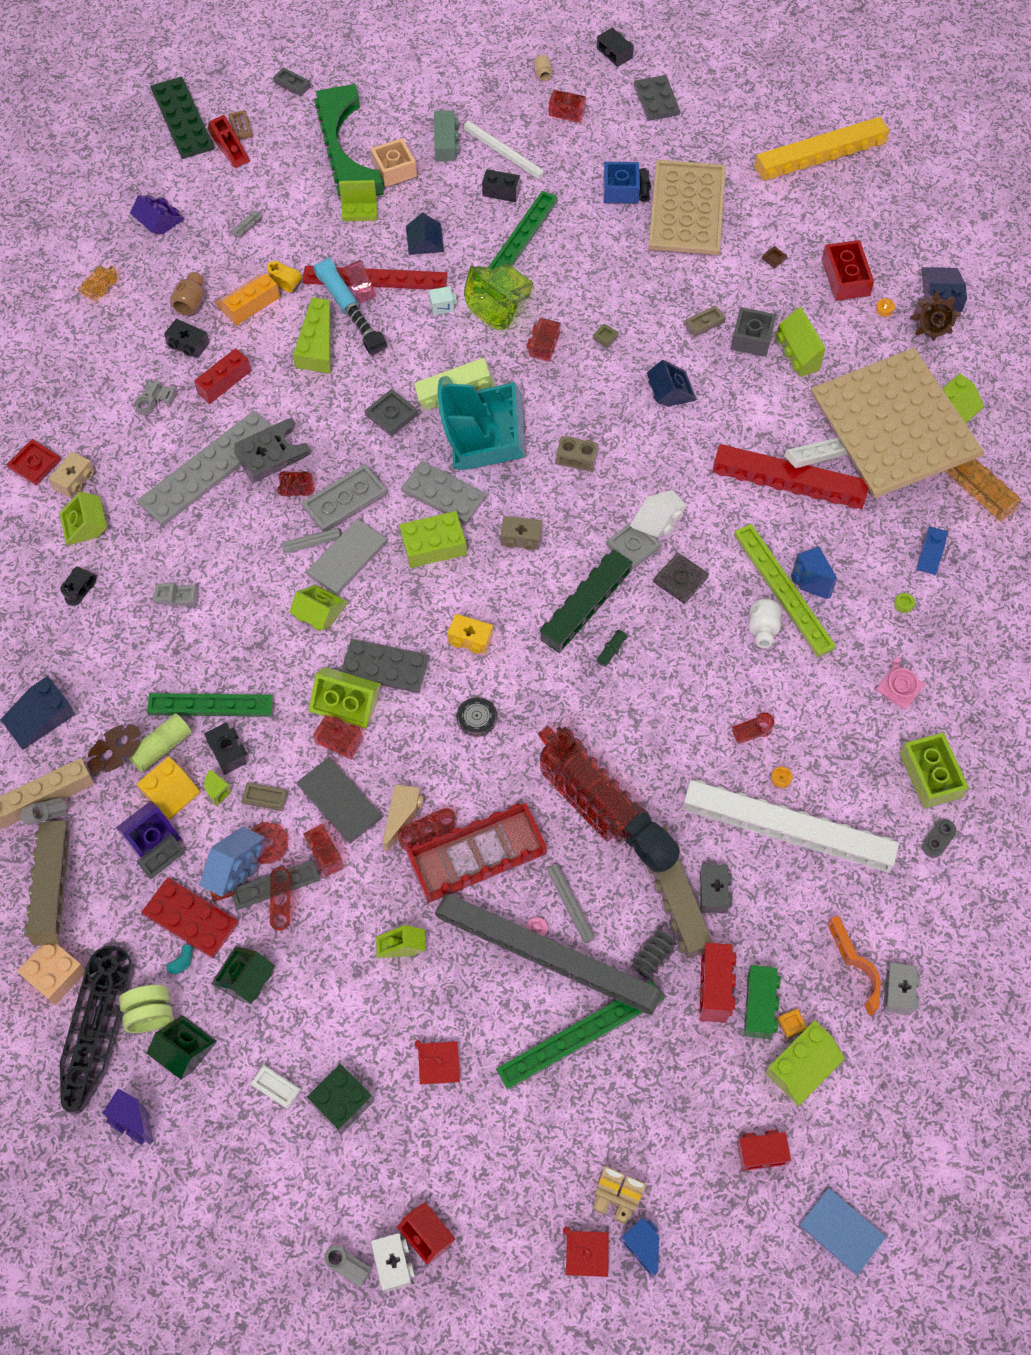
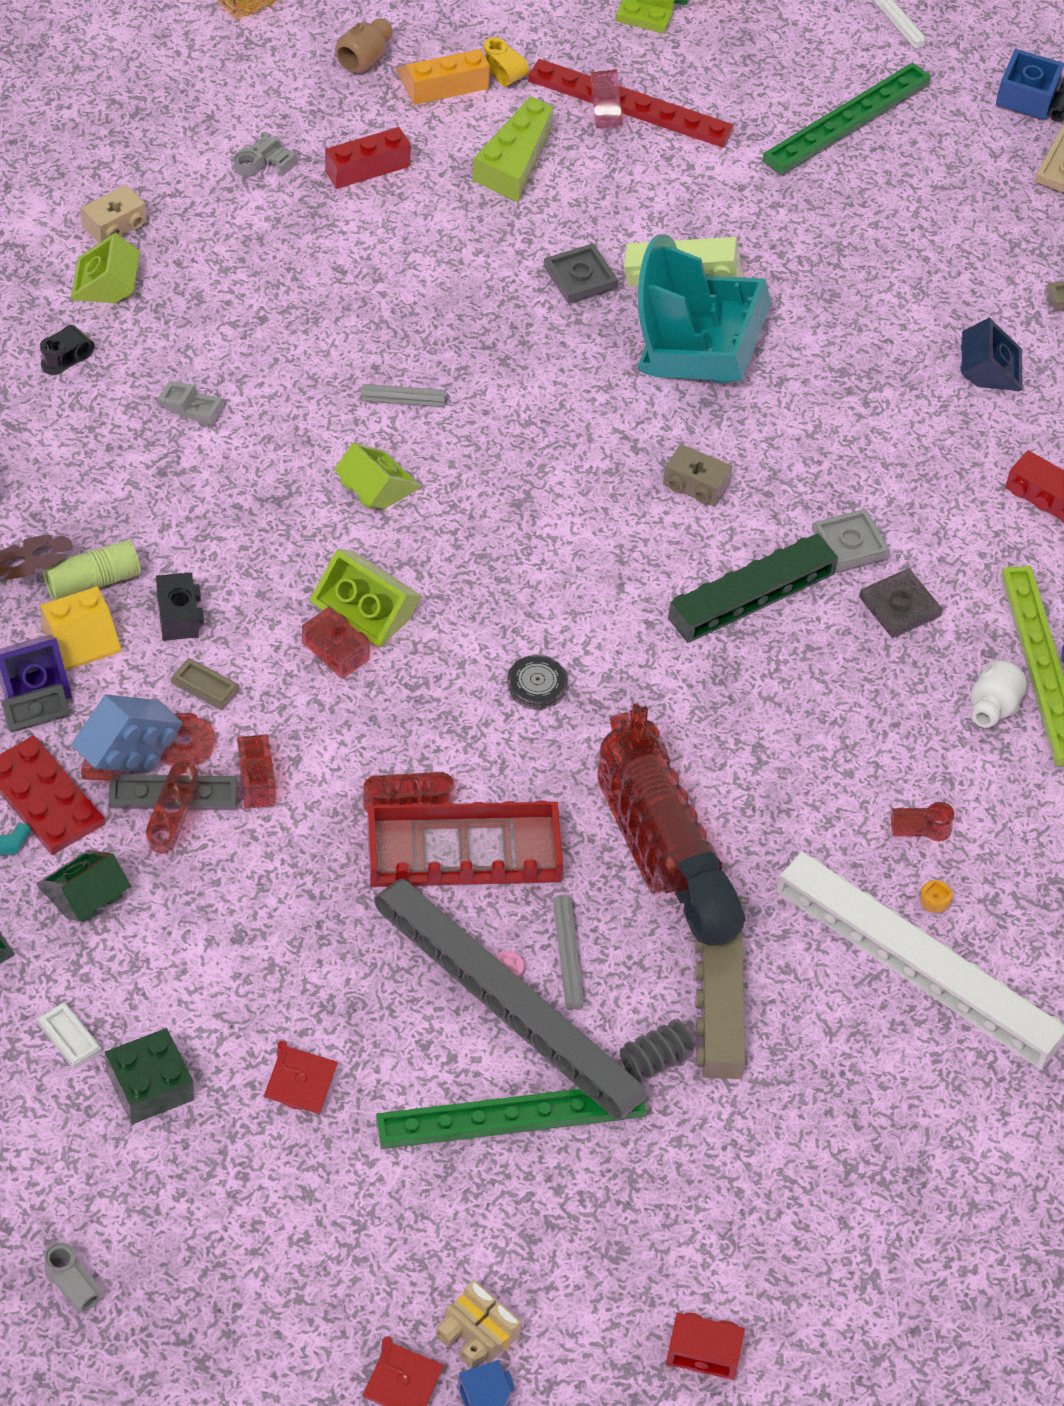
camera: 15 degrees right, 10 degrees down
(34, 462) = (70, 186): red tile -> none
(186, 338) = (339, 98): black brick -> none
(199, 473) = (300, 265): light grey plate -> none
(210, 704) = (181, 549): green plate -> none
(216, 788) = (144, 650): lime brick -> none
(273, 447) = (390, 266): dark grey brick -> none
(295, 484) = (413, 319): clear red piece -> none
(328, 274) = (564, 74): piece -> none
(339, 800) = (304, 721): dark grey tile -> none
(344, 498) = (470, 357): light grey plate -> none
(346, 557) = (442, 430): light grey tile -> none
(383, 1251) = (129, 1315): white brick -> none
(386, 665) = (441, 579): dark grey plate -> none
(401, 942) = (313, 917): lime slope -> none
(402, 812) = (387, 754): tan slope -> none
(424, 235) = (722, 70): dark blue slope -> none
(426, 1233) = (194, 1275): red brick -> none
(433, 539) = (570, 444): lime brick -> none
(442, 300) = (711, 156): light aqua brick -> none
(443, 492) = (611, 394): light grey plate -> none
(470, 634) = (572, 576): yellow brick -> none
(496, 294) = (787, 166): clear neon green piece -> none
(501, 185) = (856, 39): black brick -> none
(544, 339) = (834, 247): clear red brick -> none
(577, 455) = (819, 402): dark tan brick -> none
(605, 335) = (925, 269): olive plate -> none
(611, 648) = (763, 658): dark green axle -> none
(659, 514) = (900, 507): white slope -> none
(709, 899) = (778, 999): dark grey brick -> none
(717, 982) = (729, 1111): red brick -> none
(761, 1002) = (783, 1162): green brick -> none
(792, 1023) = (816, 1207): light orange tile -> none
(805, 1063) = (813, 1258): lime slope -> none
(852, 959) = (941, 1158): orange piece -> none
(894, 999) = (994, 1198): light grey brick -> none

